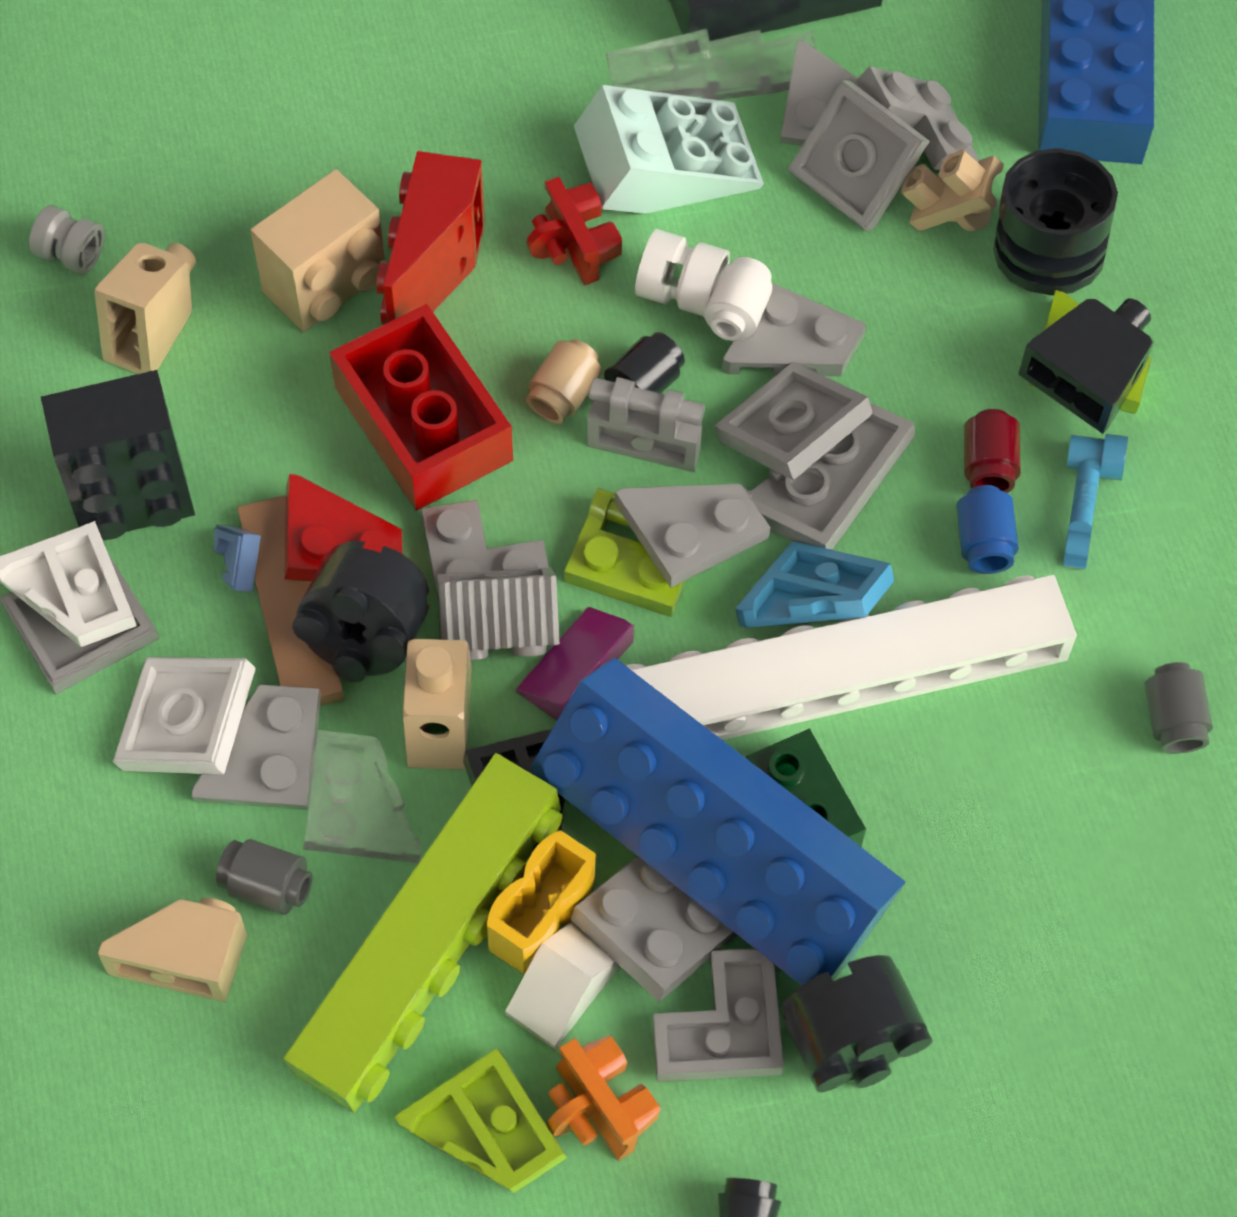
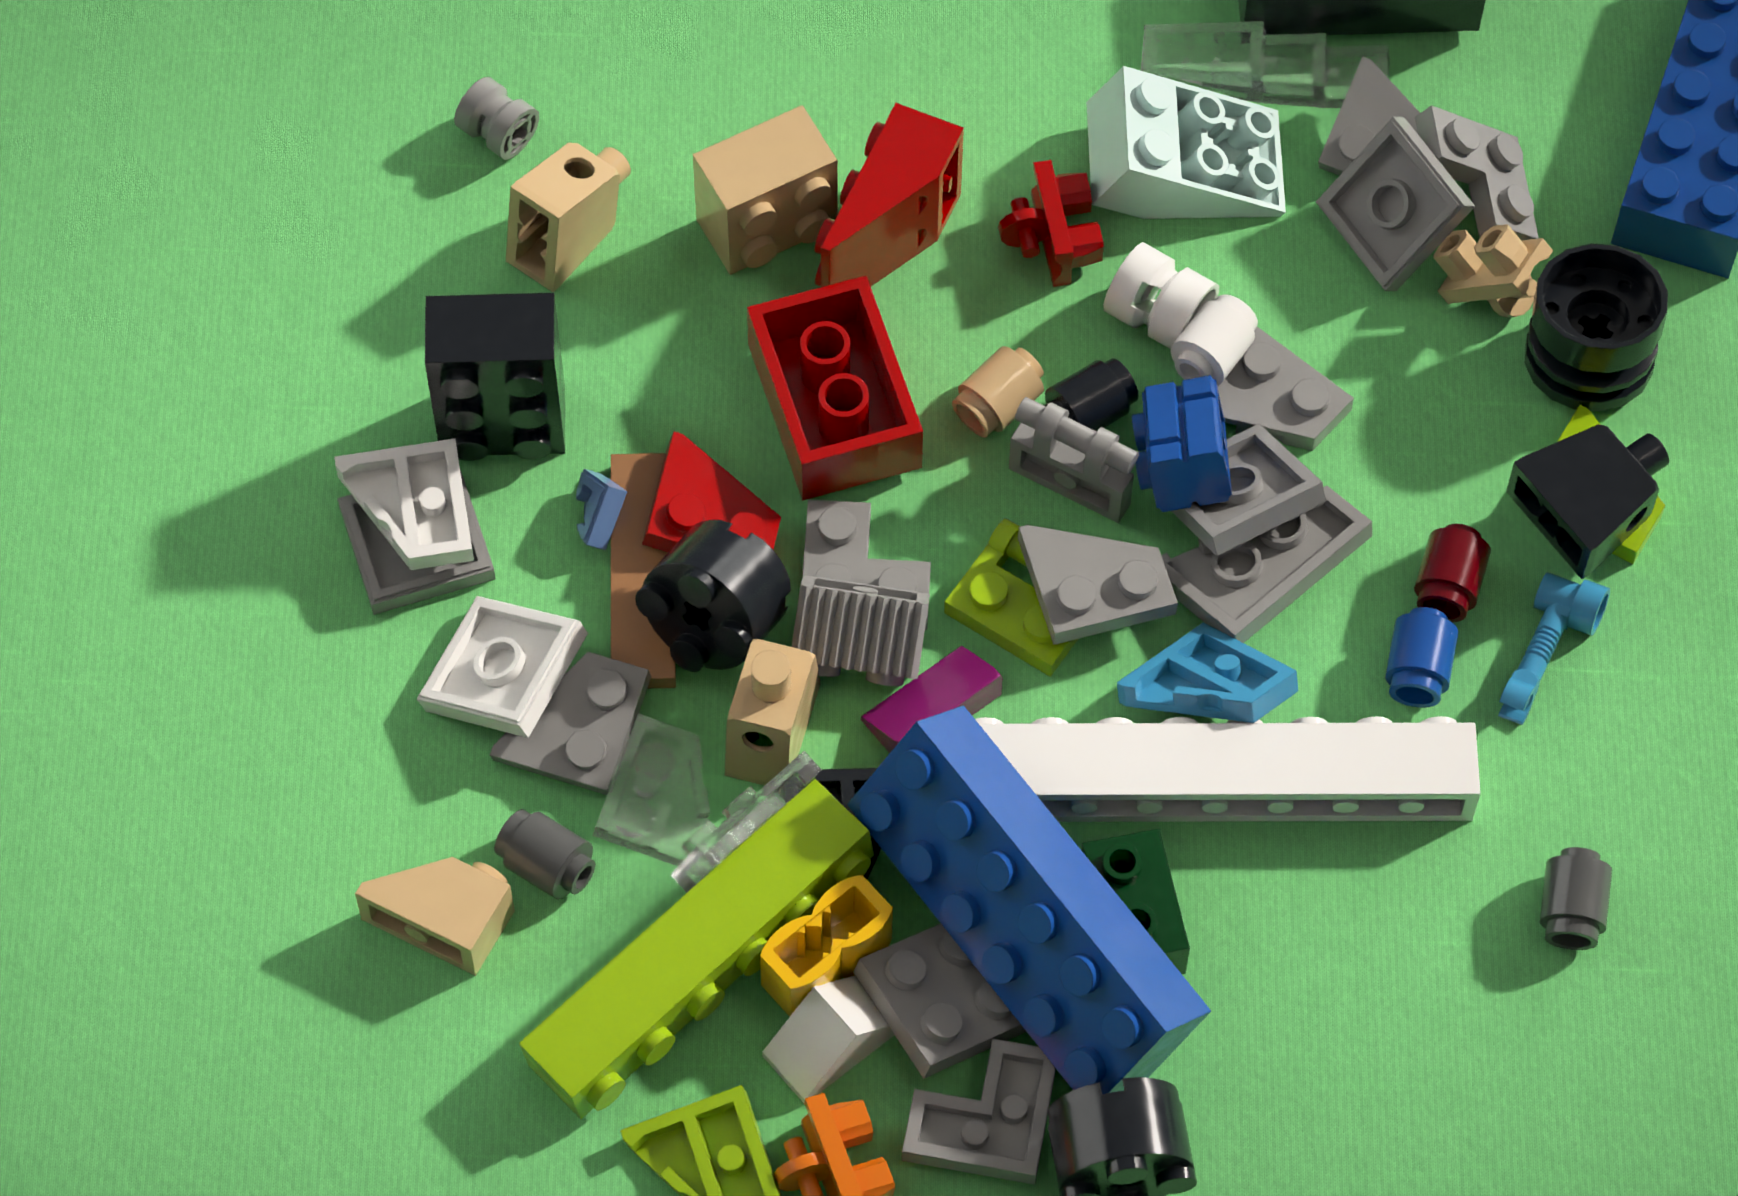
camera: 15 degrees right, 0 degrees up
(440, 801) = (744, 816): none -> clear wing
(737, 391) = (1183, 444): none -> blue brick

